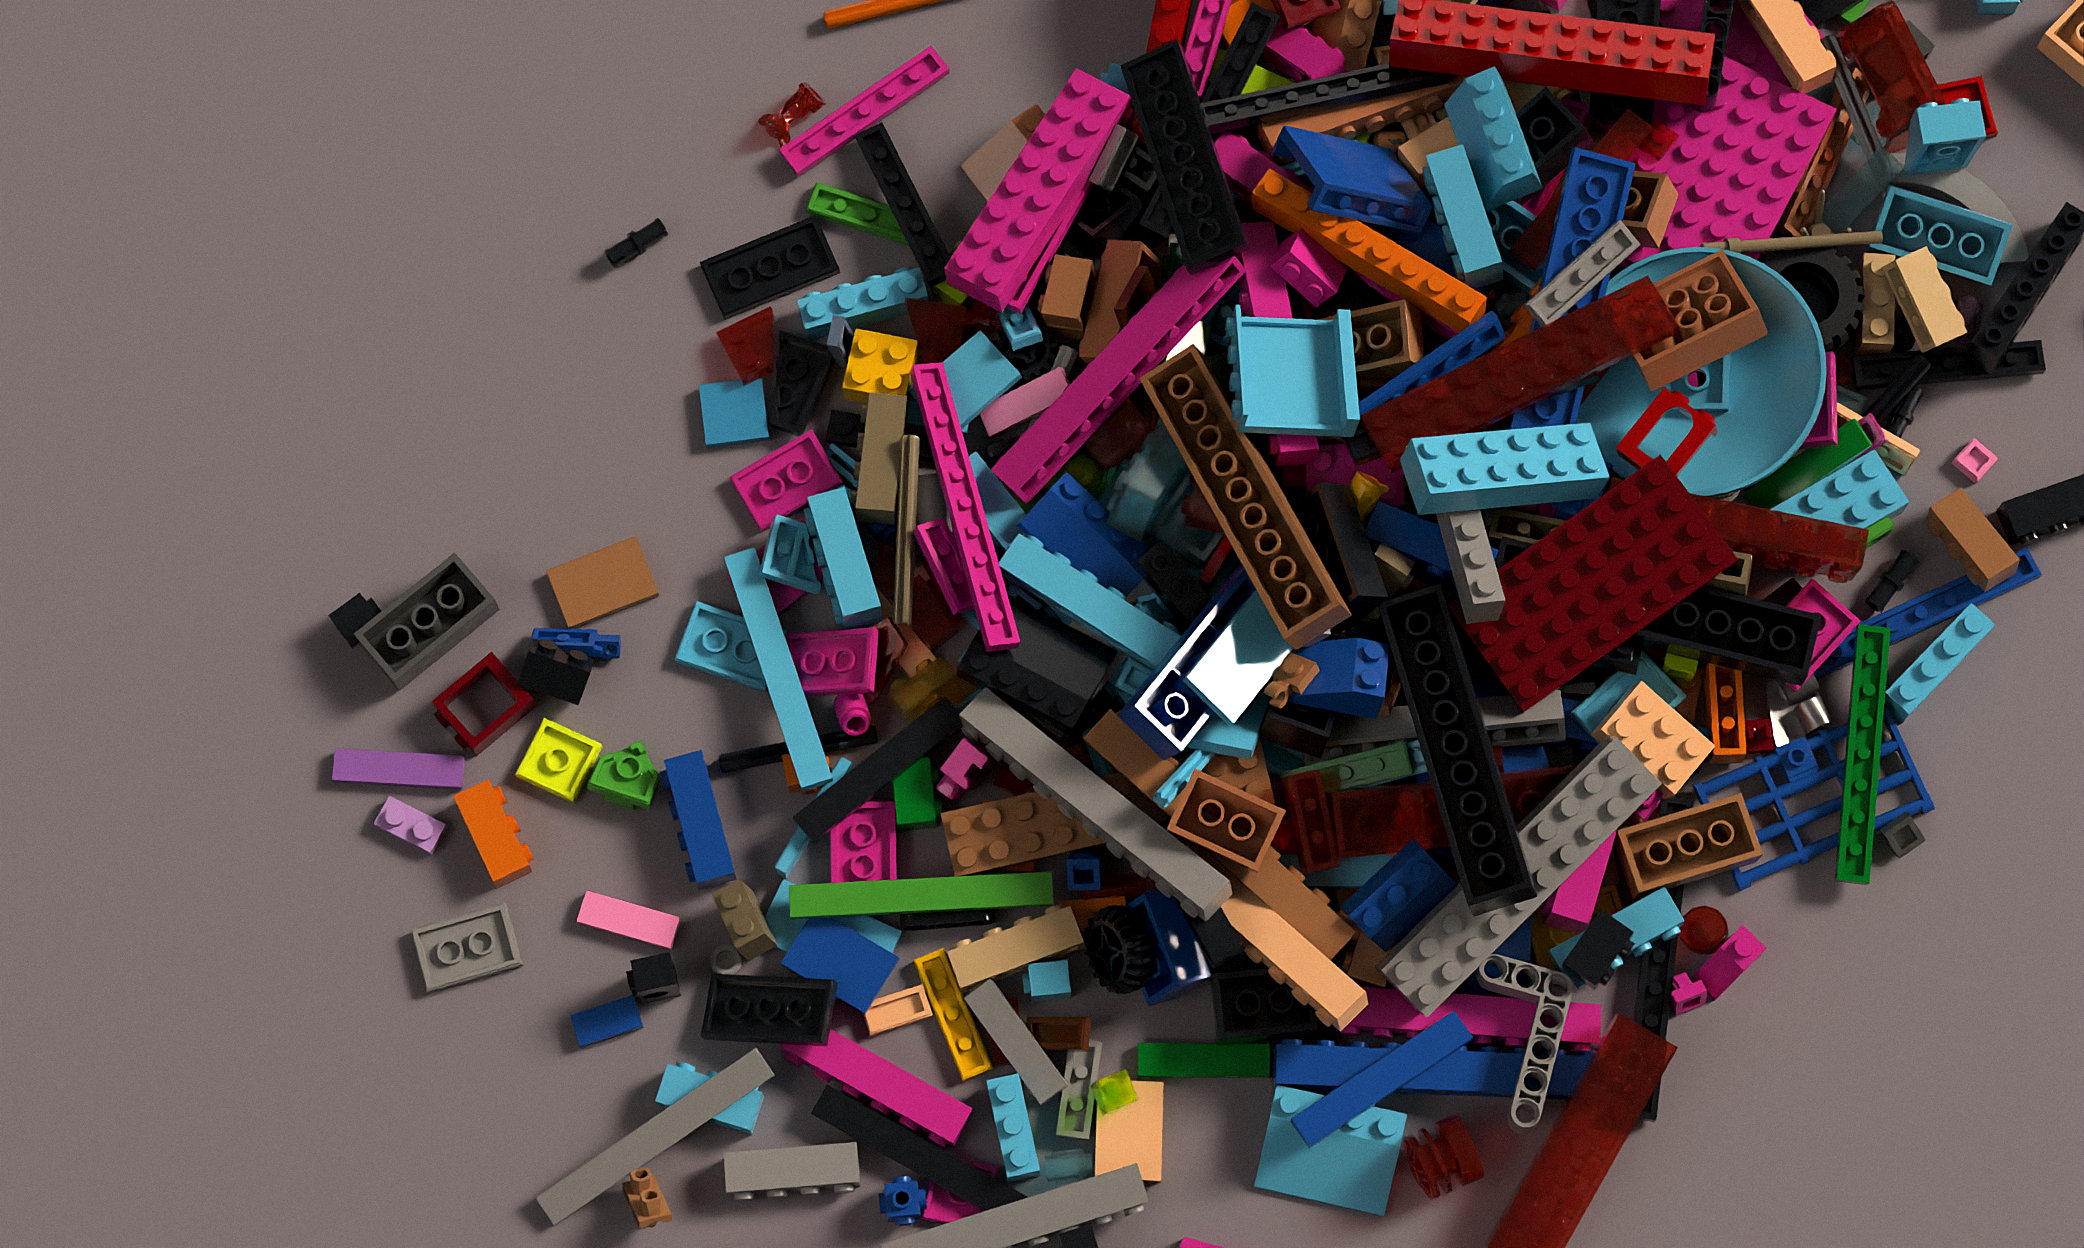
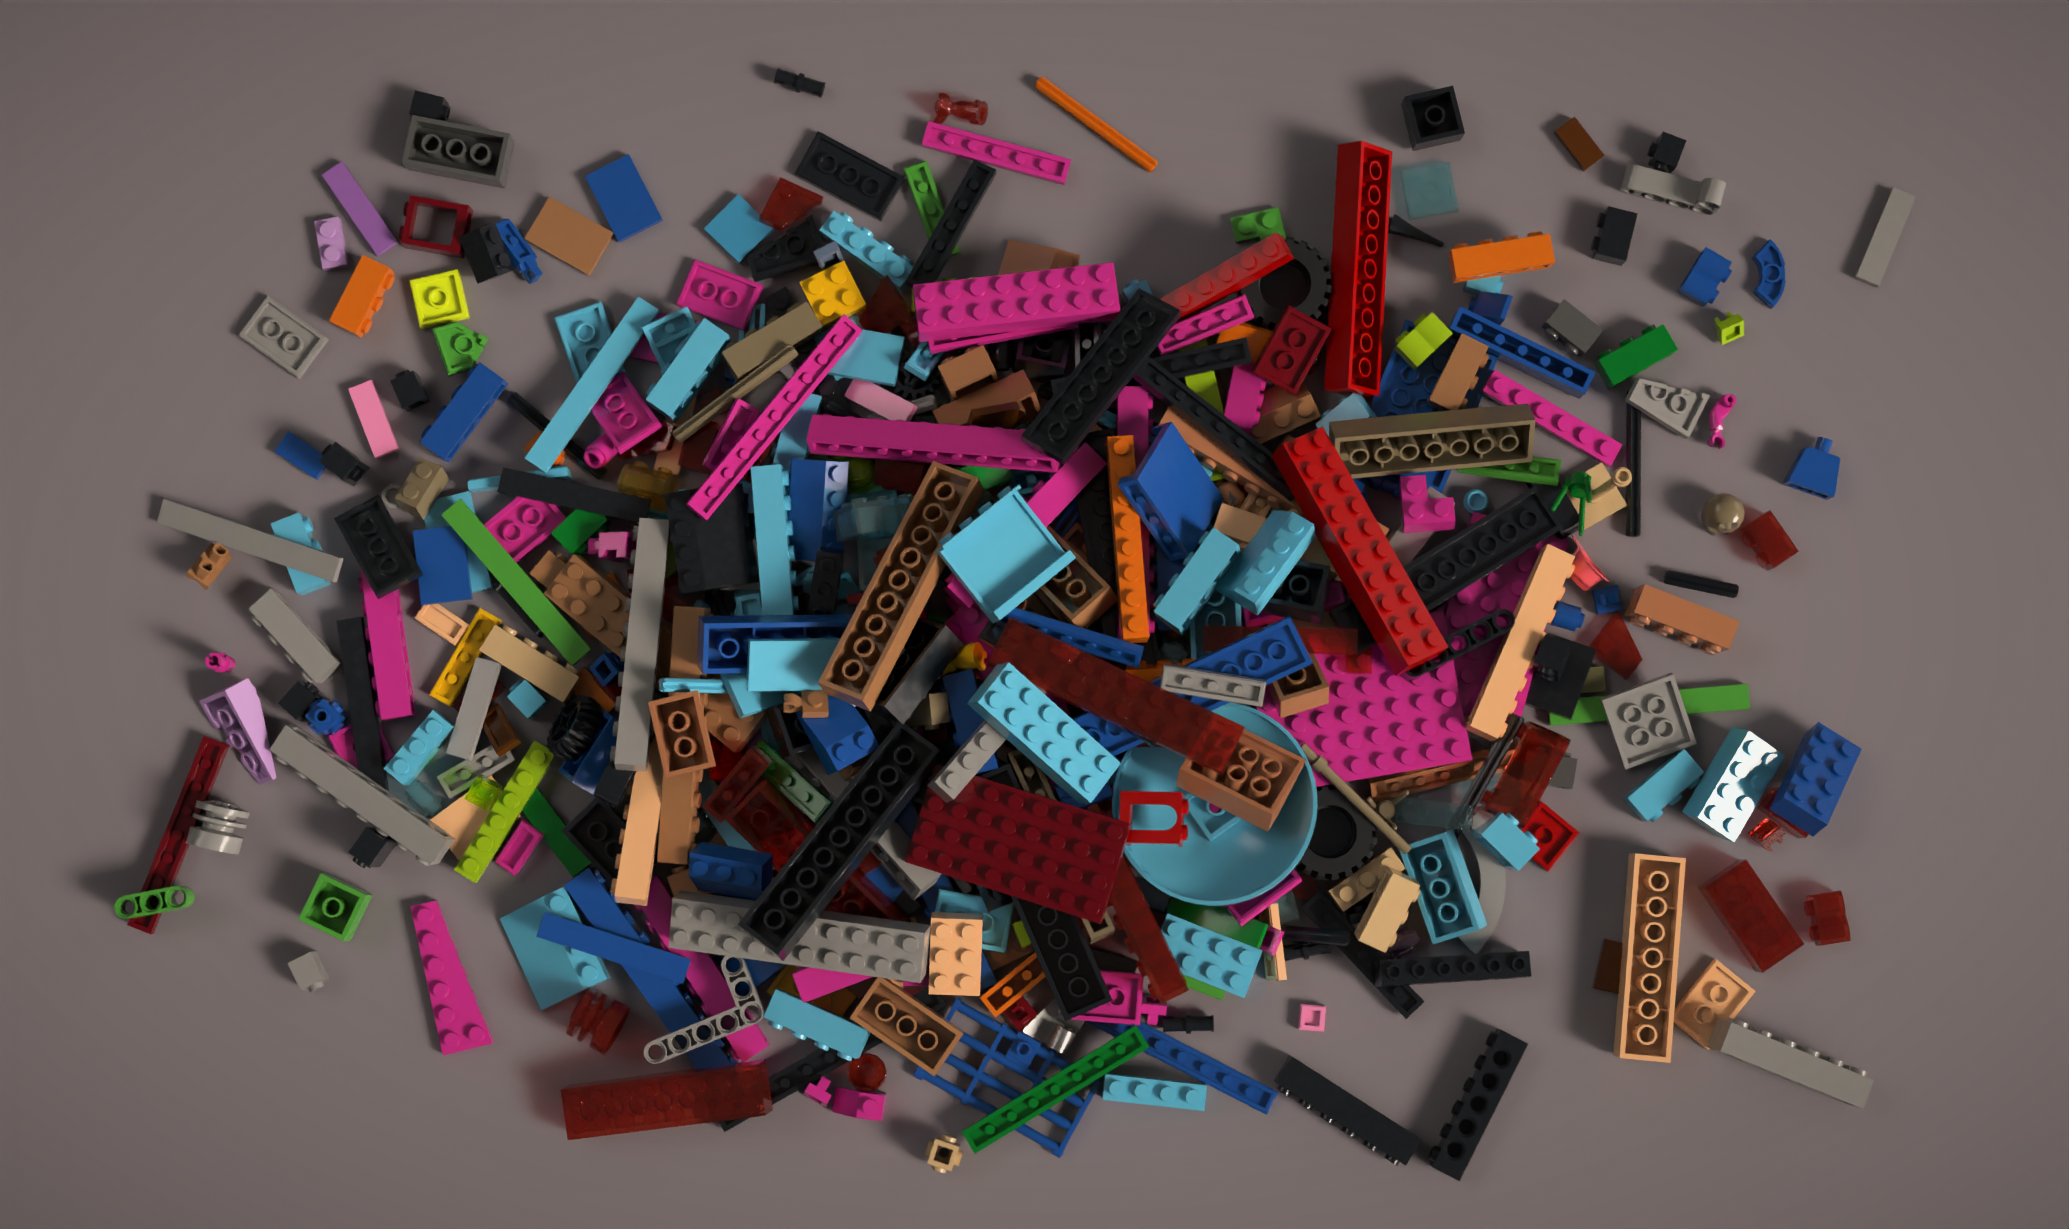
camera: 50 degrees right, 10 degrees up
(608, 500) = (623, 198): none -> blue tile
(630, 858) = (409, 390): none -> black brick
(863, 1215) = (299, 699): none -> black brick
(933, 855) = (549, 567): none -> medium nougat brick
(1113, 158) = (1076, 331): light grey tile -> none
(1153, 1100) = (505, 812): none -> lime plate
(1196, 1108) = (519, 847): none -> dark pink tile
(1308, 267) = (1091, 509): dark pink brick -> none
(1598, 950) = (793, 1020): black brick -> none
(1853, 600) = (1152, 1009): none -> dark pink tile
(1853, 907) = (939, 1162): none -> tan brick
(1902, 835) = (1025, 1151): flat silver plate -> none
(1972, 540) = (1252, 1055): medium nougat brick -> none

